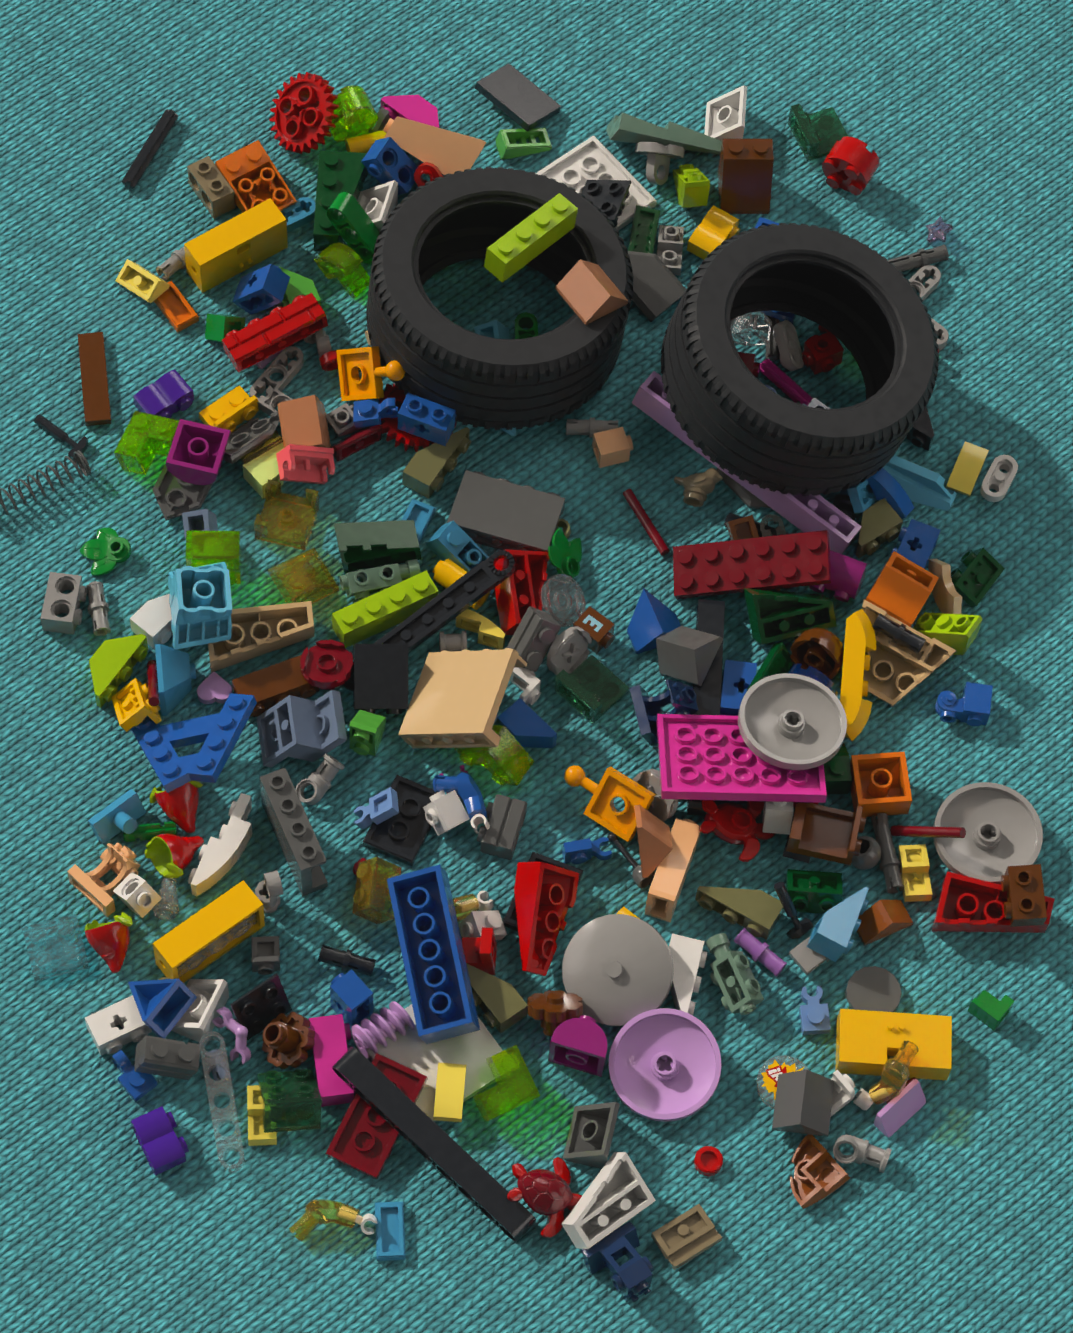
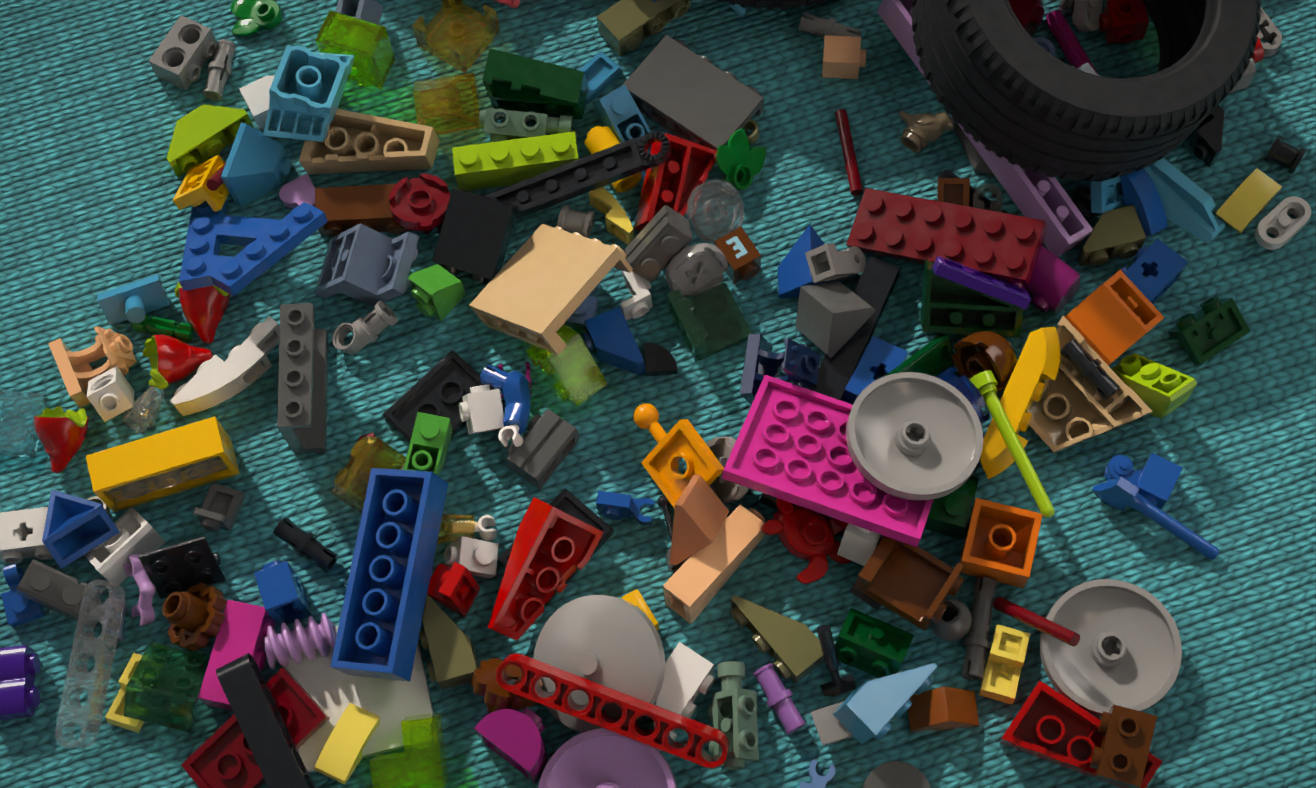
camera: 30 degrees right, 5 degrees up
(273, 887) = (250, 438): light grey connector -> none
(379, 809) = (414, 383): medium blue plate -> none
(415, 847) = (429, 443): none -> bright green slope
(565, 730) = (658, 360): none -> black tile
(660, 999) = (630, 706): none -> red beam
(674, 613) = (832, 265): none -> light grey leg
(795, 592) = (981, 282): none -> dark purple tile
(828, 668) = (986, 385): none -> lime piece
(944, 592) = (1166, 334): tan tile -> none
(955, 718) = (1121, 493): none -> blue piece
(982, 424) = (1285, 154): none -> black bush

